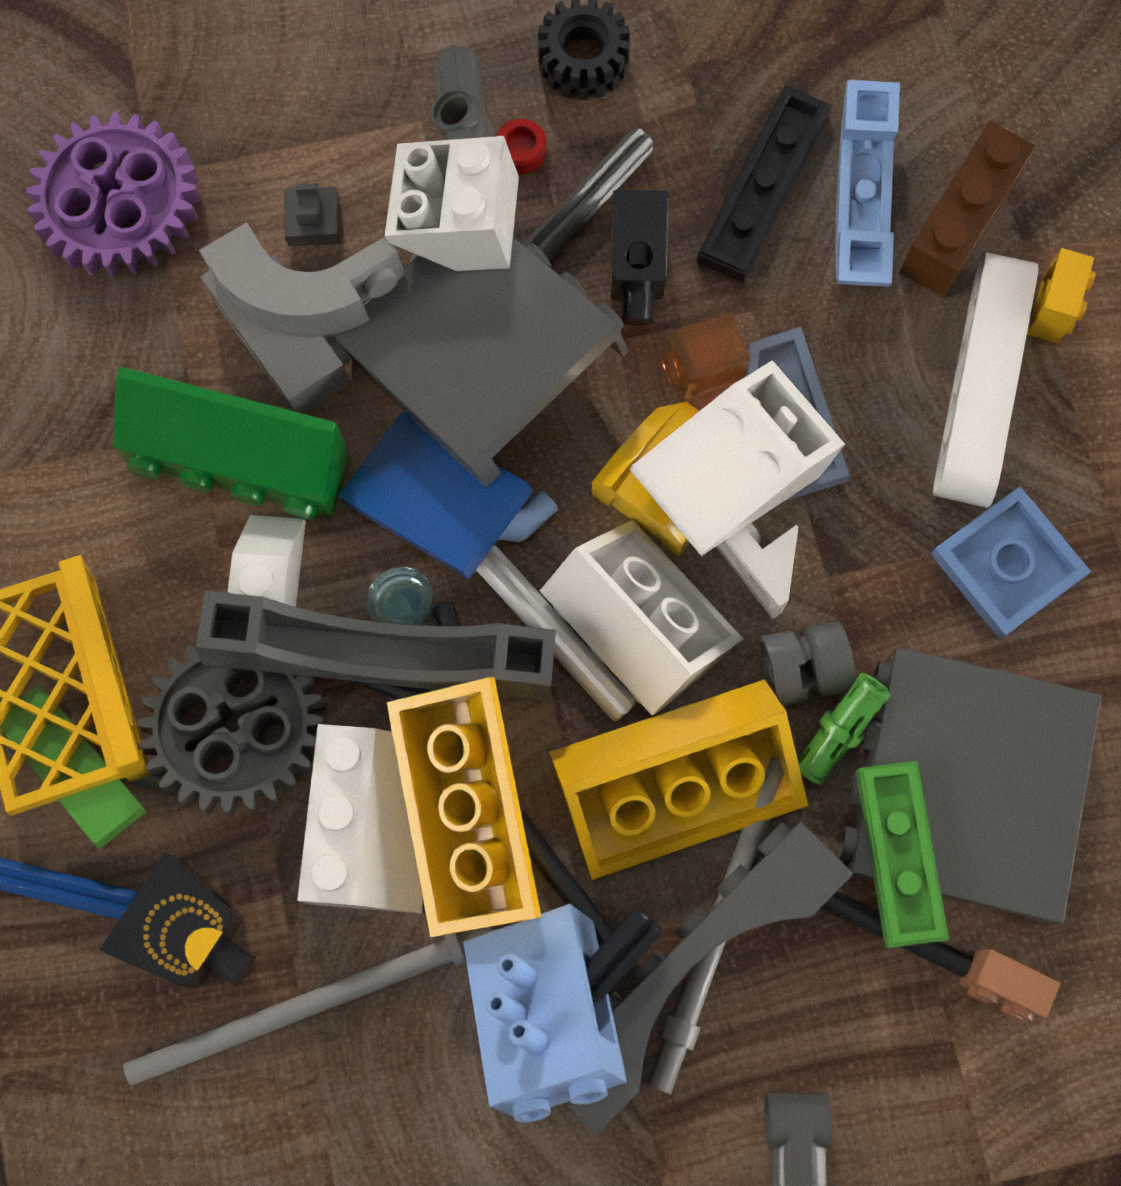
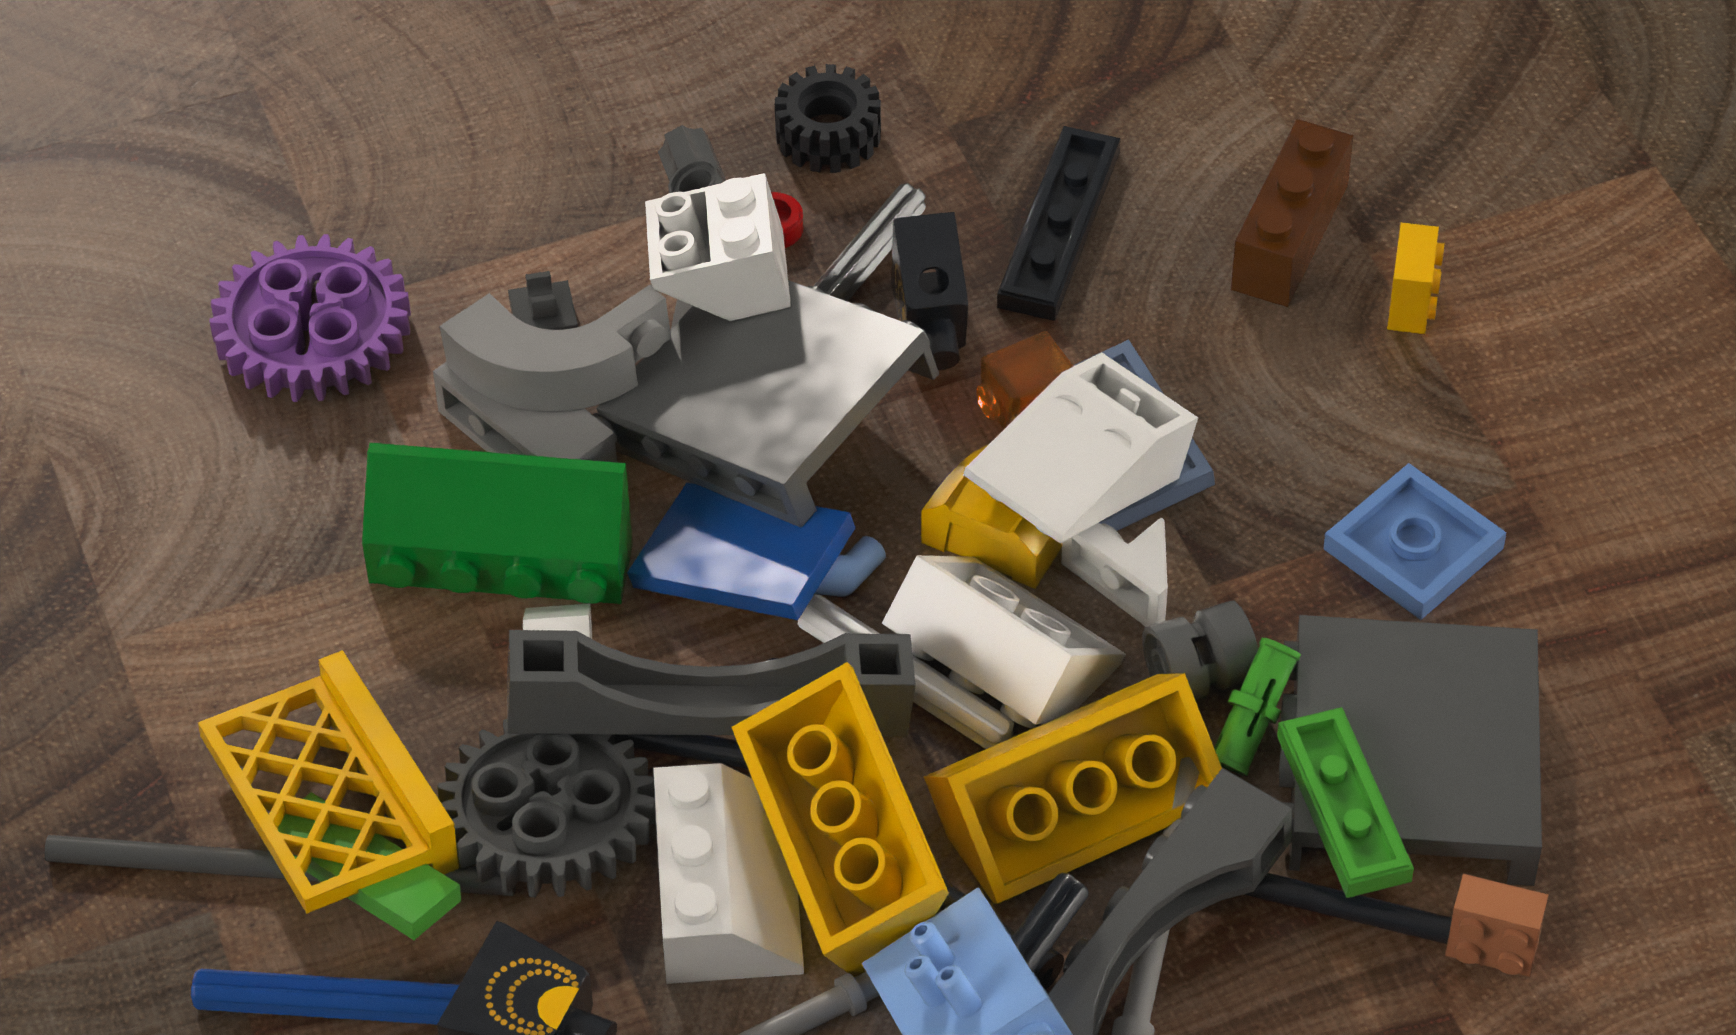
camera: 10 degrees left, 25 degrees down
(400, 597) = (719, 644): clear light blue hat -> none
(865, 183) = (1173, 201): light blue slope -> none
(986, 380) = (1348, 369): white beam -> none

